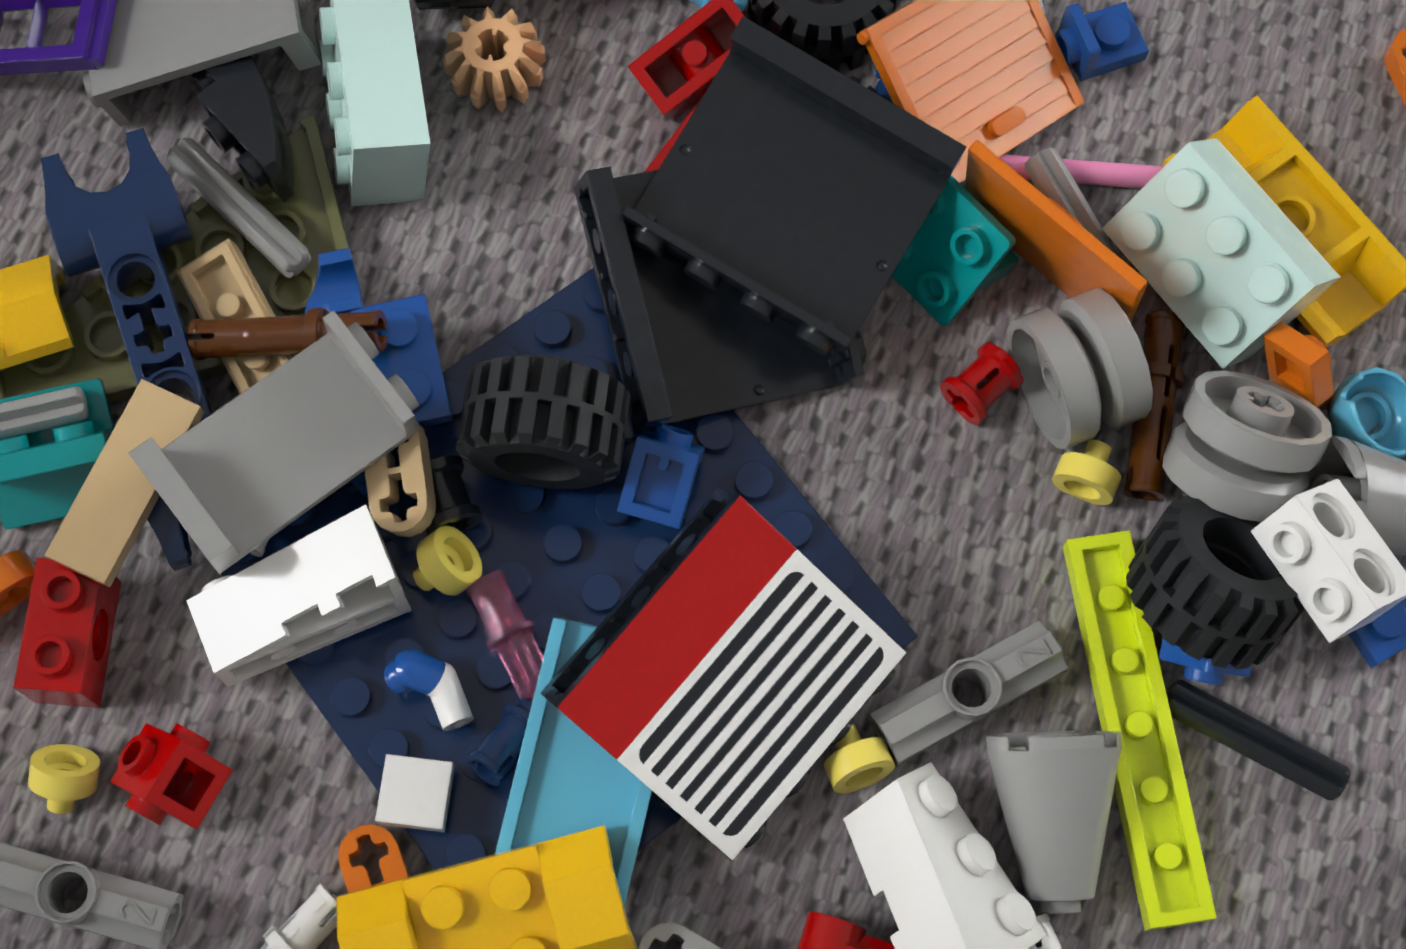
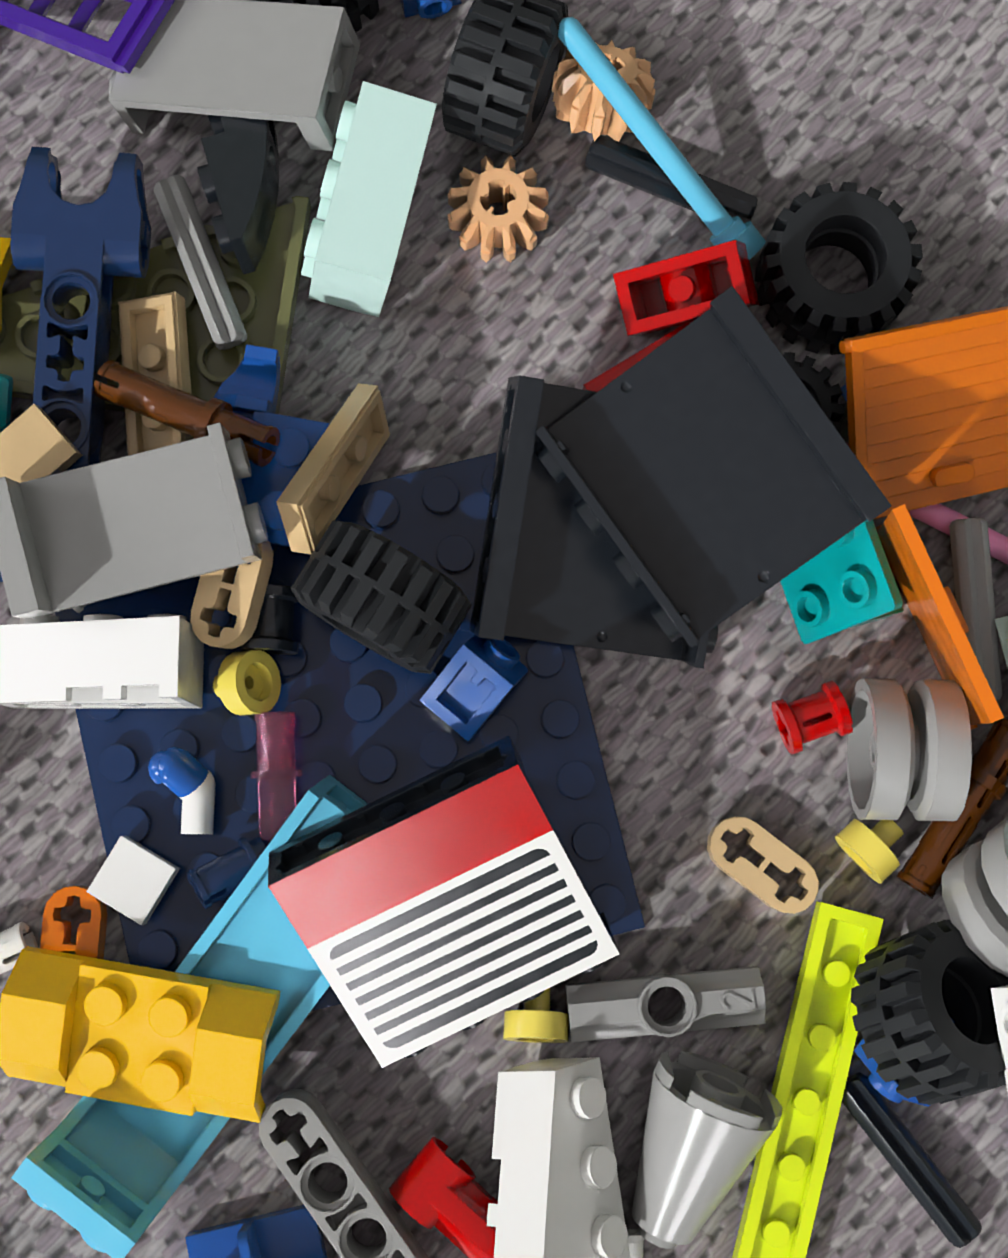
camera: 25 degrees right, 10 degrees up
(447, 333) = (333, 468): none -> tan tile
(1003, 519) = (771, 852): none -> tan beam

